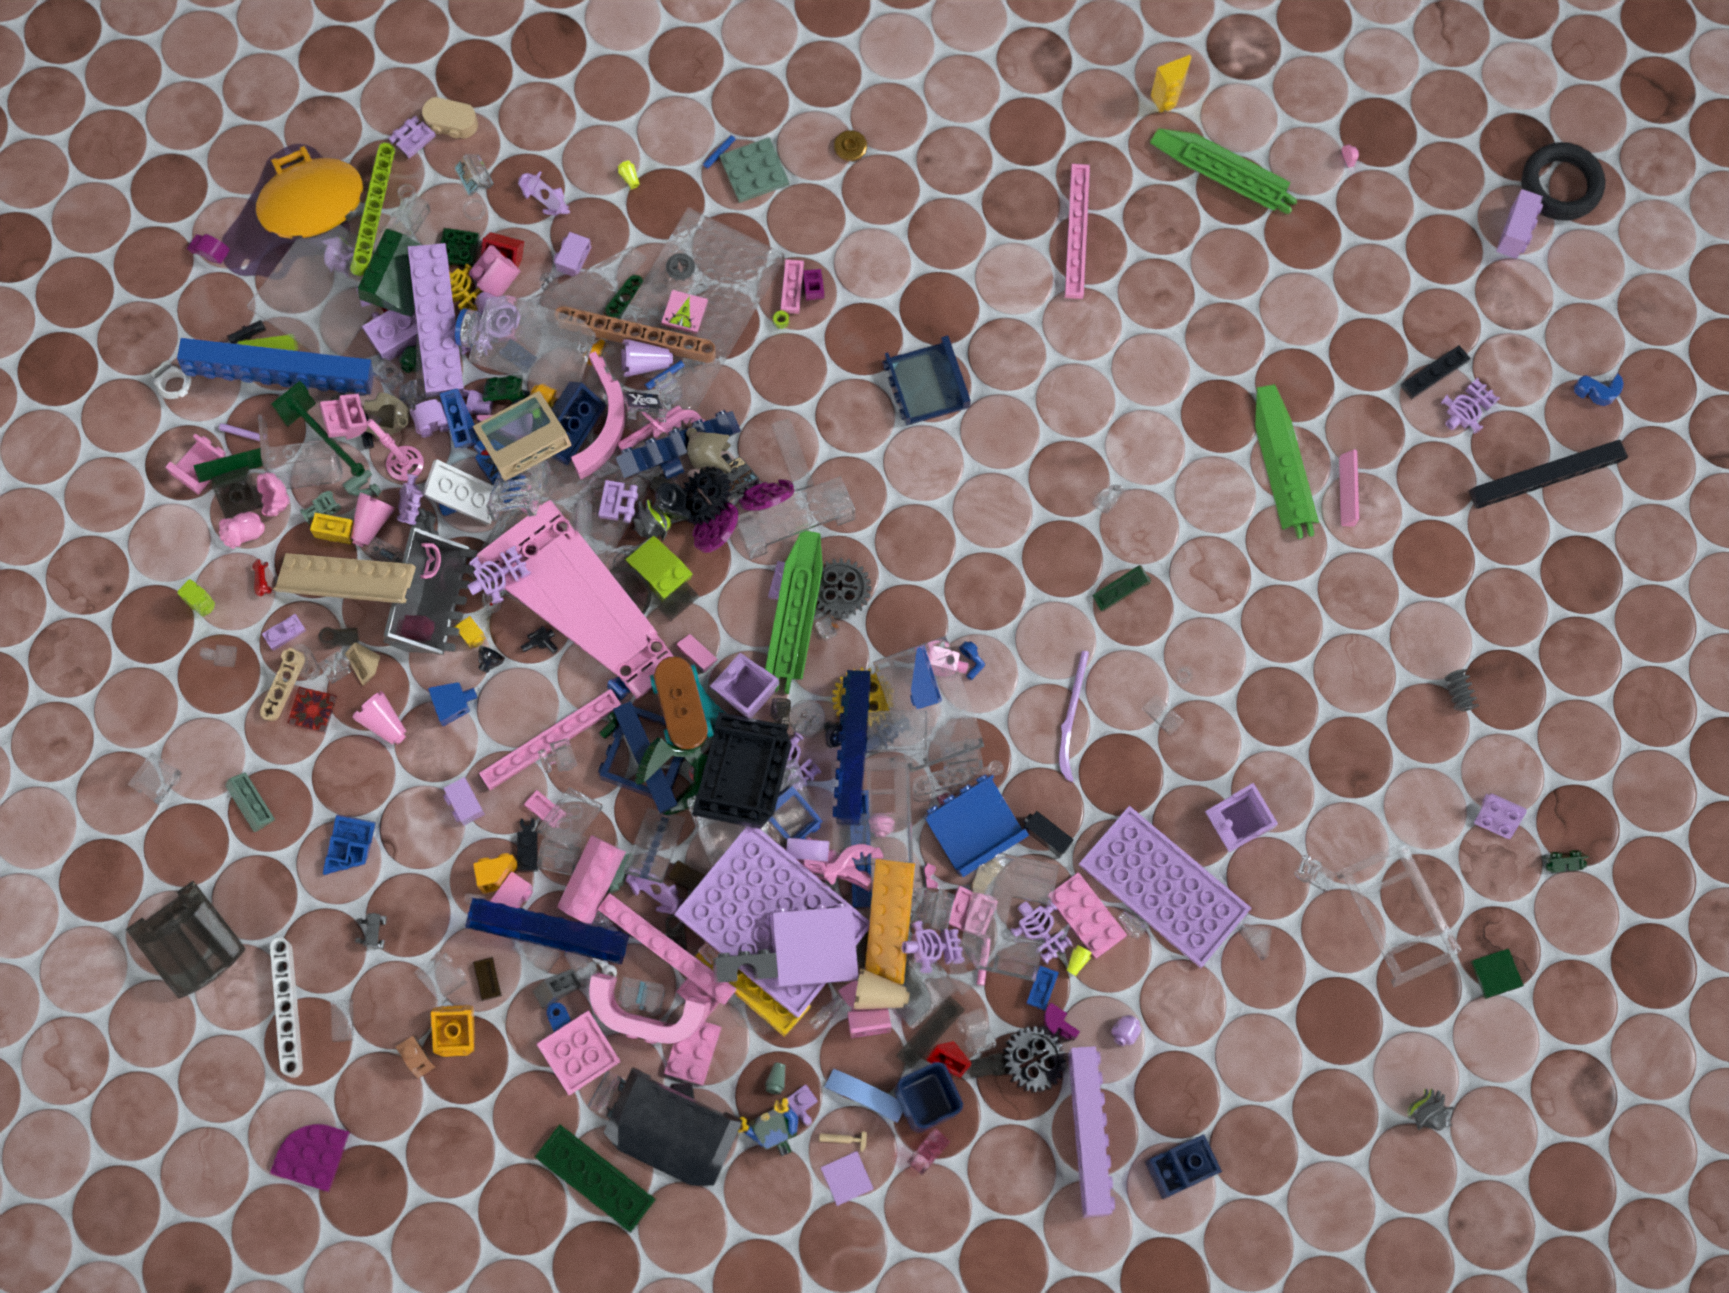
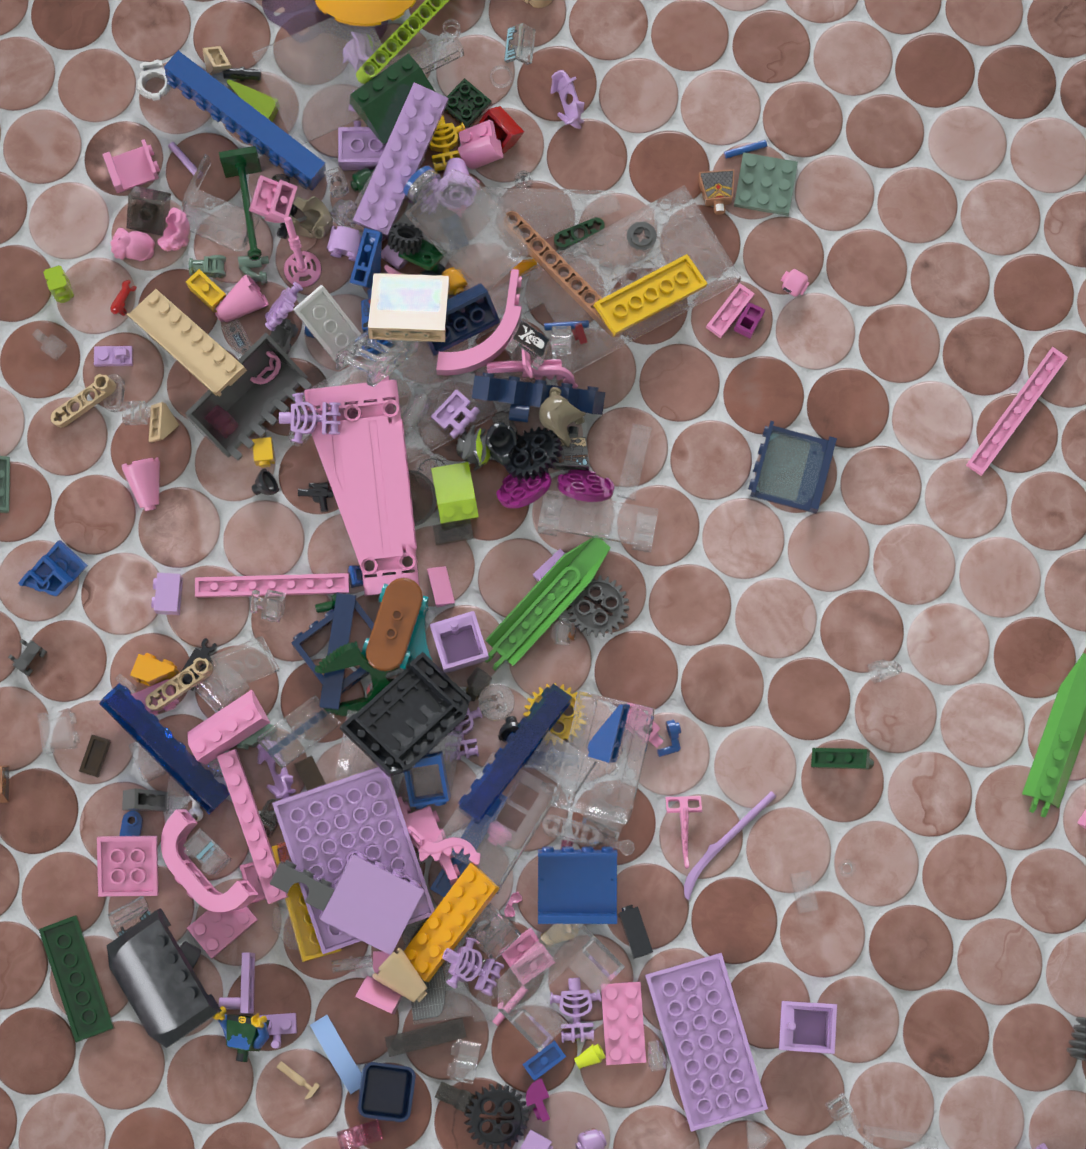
camera: 35 degrees right, 5 degrees up
(215, 332) = (215, 60): none -> tan slope
(216, 467) = (156, 182): dark green sticker -> none
(312, 709) = (95, 437): clear red tile -> none
(341, 637) = (155, 389): clear smoke piece -> none
(451, 701) = (210, 501): blue torso -> none
(453, 1030) = (40, 781): light orange slope -> none
(481, 383) = (405, 239): none -> black tyre
(527, 870) = (177, 682): none -> tan beam
(539, 805) = (228, 635): bright pink tile -> none
(572, 254) = (558, 168): lavender brick -> none
(629, 174) = (653, 122): neon yellow cone -> none
(643, 358) = (557, 300): lavender cone -> none
(681, 374) = (579, 333): none -> dark red plate
(684, 312) = (617, 274): bright pink tile -> none
(716, 195) = (717, 189): none -> torso
(720, 308) = (650, 294): none -> yellow plate
(757, 1102) = (246, 1001): none -> lavender piece
(776, 1080) = (274, 992): sand green cone -> none
(781, 325) = (701, 329): lime axle -> none
(808, 849) = (420, 817): lavender slope -> none
(831, 233) = (795, 282): none -> bright pink head
(847, 1178) = (279, 1112): lavender piece -> none
(850, 145) = (865, 211): pearl gold wheel -> none
(951, 1057) = (427, 1070): red slope -> none
(1026, 715) = (684, 819): none -> bright pink piece

